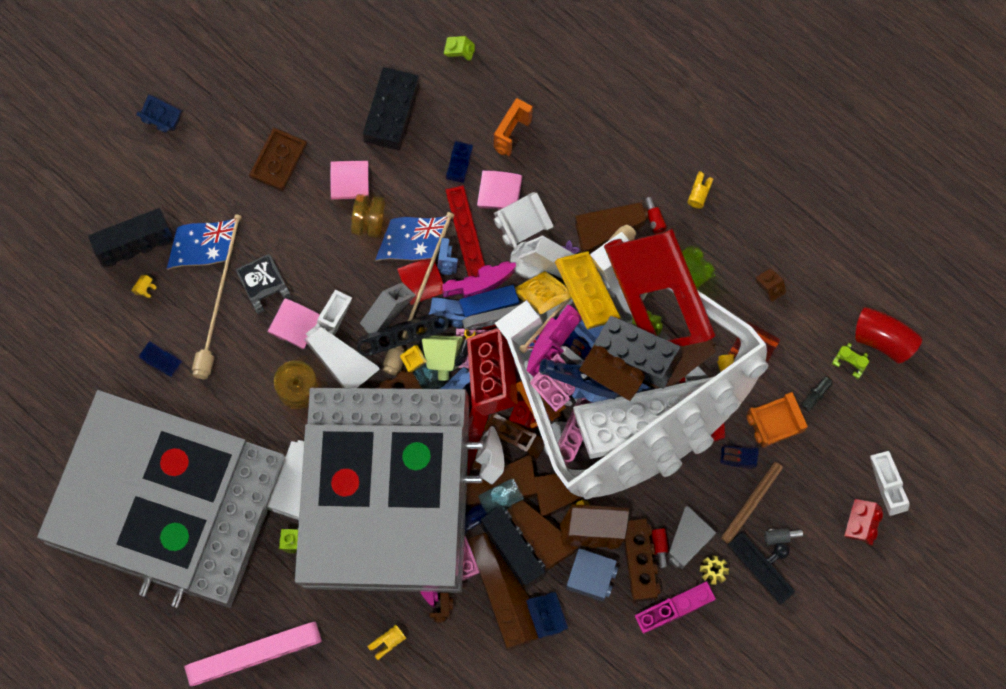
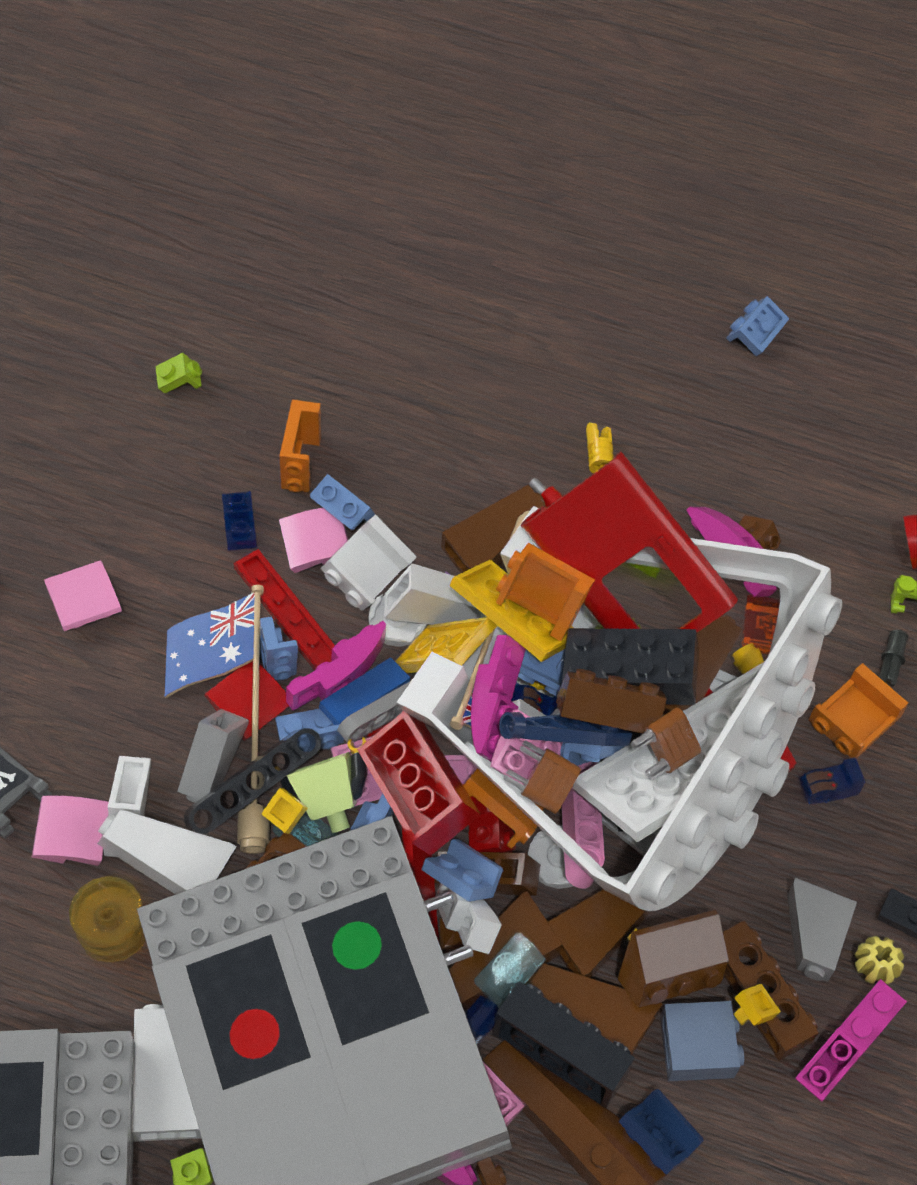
camera: 25 degrees left, 15 degrees down
(365, 215) = (130, 631): clear yellow wheel -> none
(391, 108) = (109, 480): black brick -> none
(498, 432) = (465, 871): none -> medium blue bracket
(524, 174) = (341, 503): none -> medium blue bracket
(557, 404) = (549, 779): none -> dark orange piece
(606, 286) = (545, 587): none -> orange panel
(628, 569) = (755, 1006): none -> yellow tile
(635, 407) = (671, 742): none -> dark orange piece
(660, 545) = (776, 946): red piece -> none
(752, 283) = (720, 528): none -> dark pink slope
(752, 502) = (881, 843): medium nougat axle -> none
(843, 138) = (758, 325): none -> medium blue bracket

